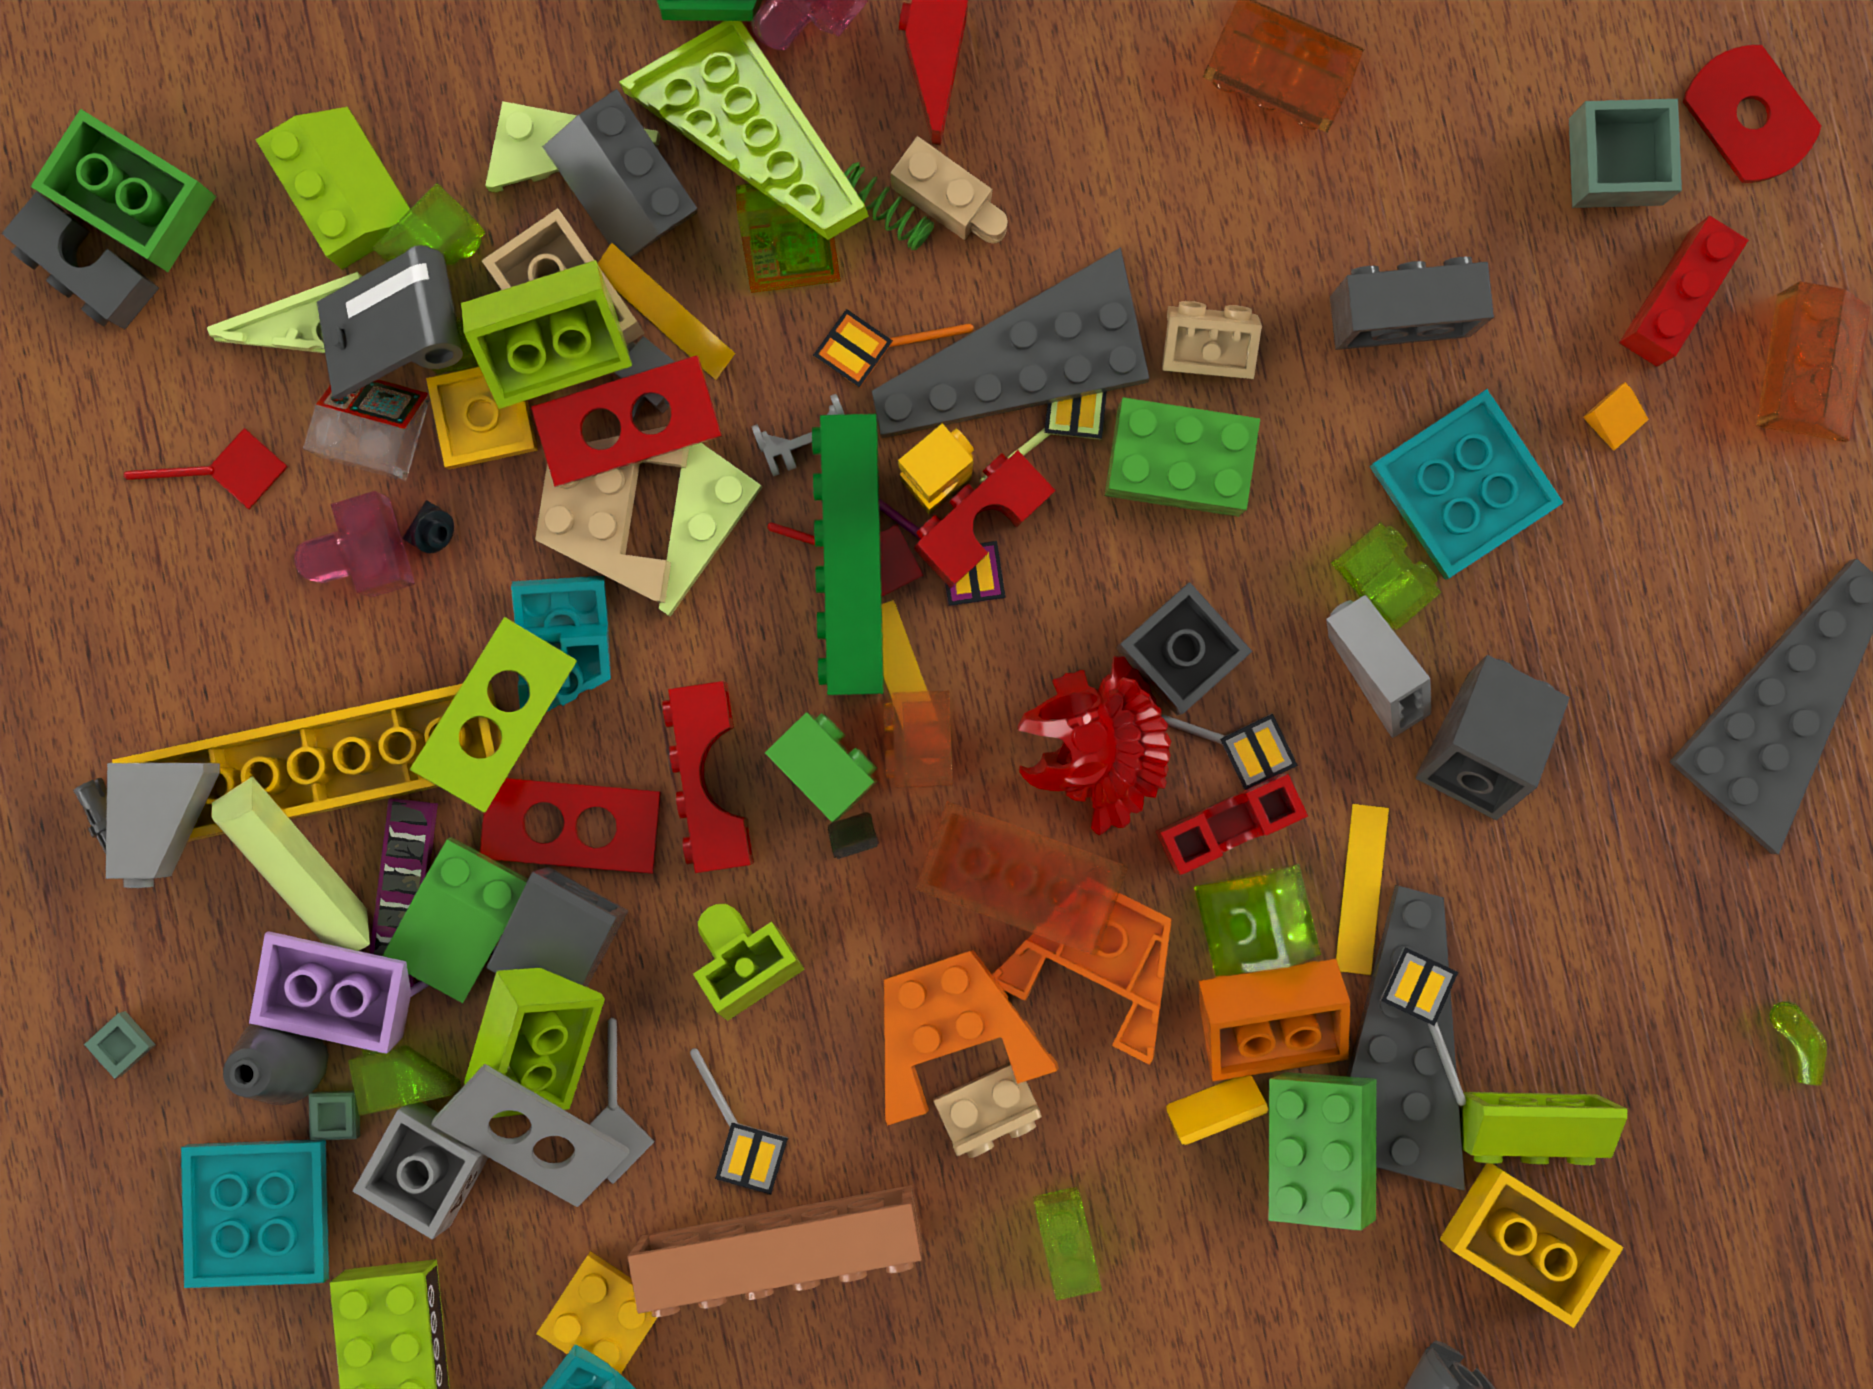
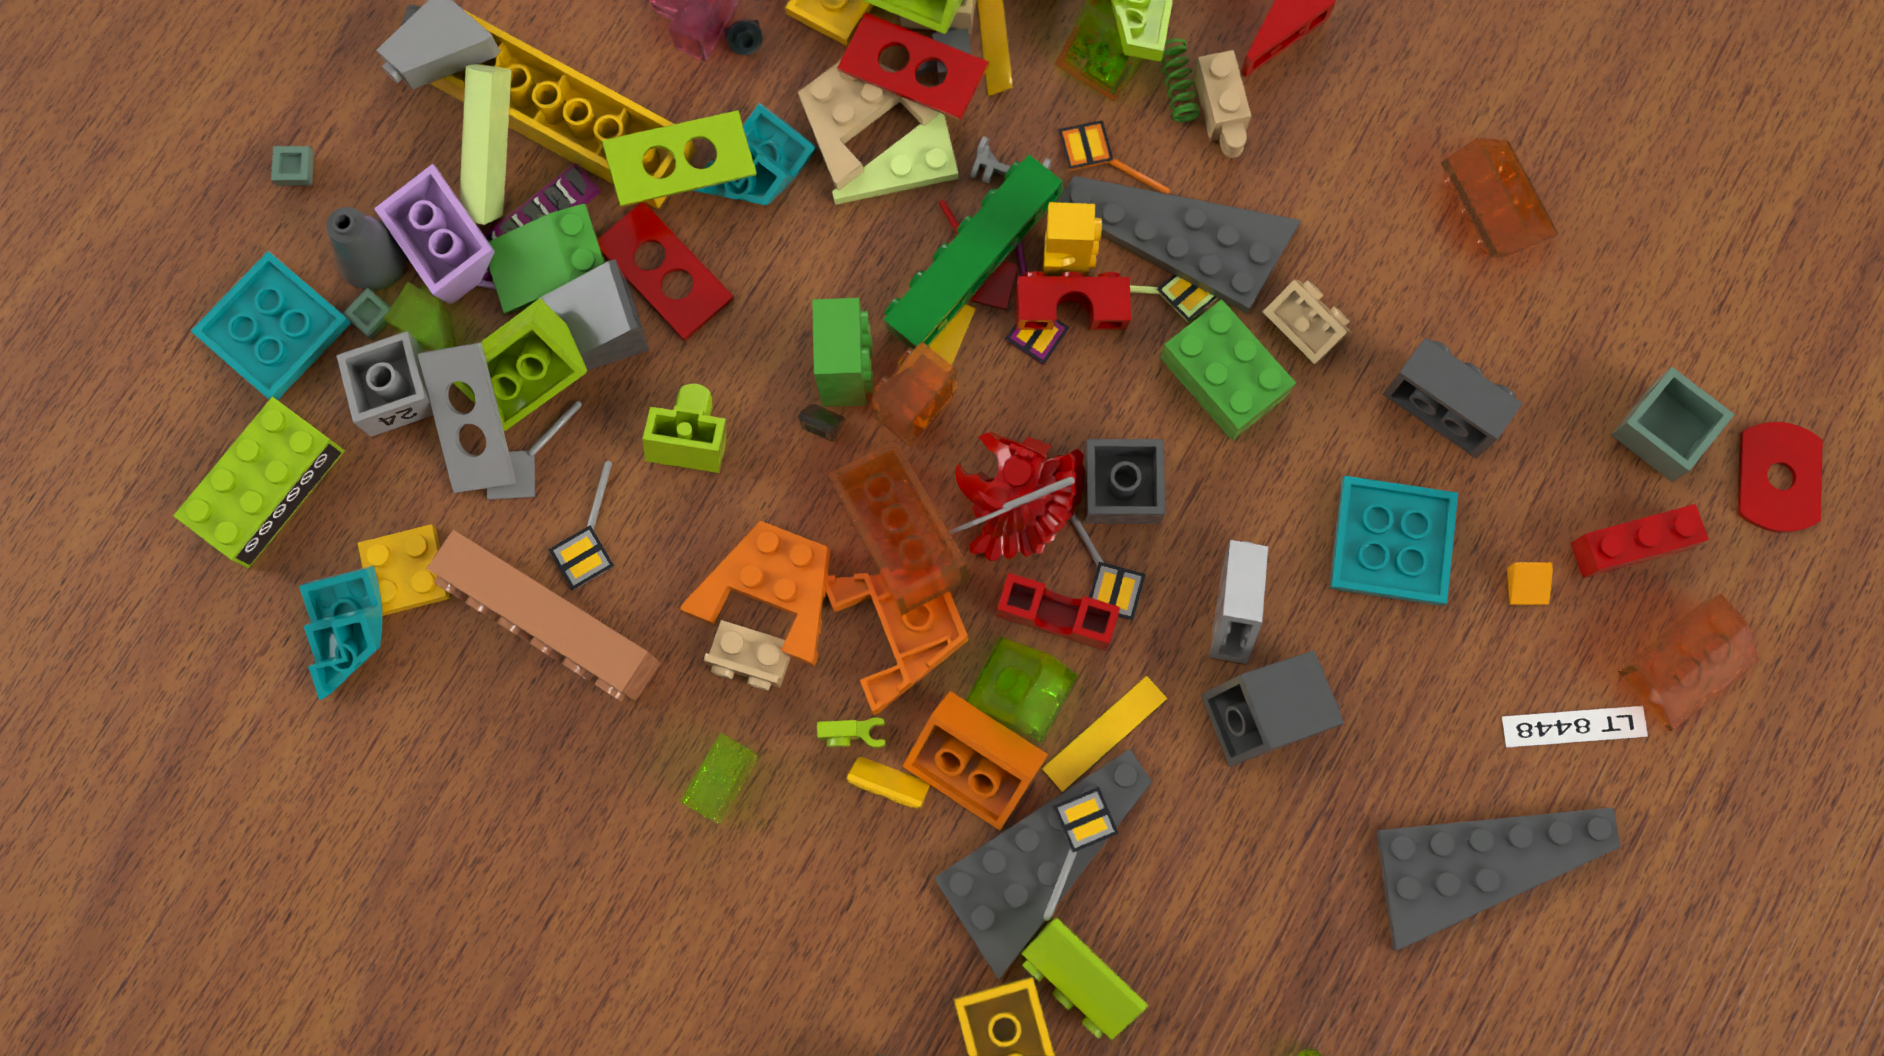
camera: 45 degrees right, 10 degrees down
(699, 719) = (795, 273): red arch -> none
(1097, 799) = (1019, 501): none -> light grey piece
(1134, 1104) = (841, 732): none -> lime plate
(1322, 1150) = (931, 863): bright green brick -> none
(1386, 575) = (1292, 551): clear neon green brick -> none
(1760, 512) = (1574, 726): none -> white sticker

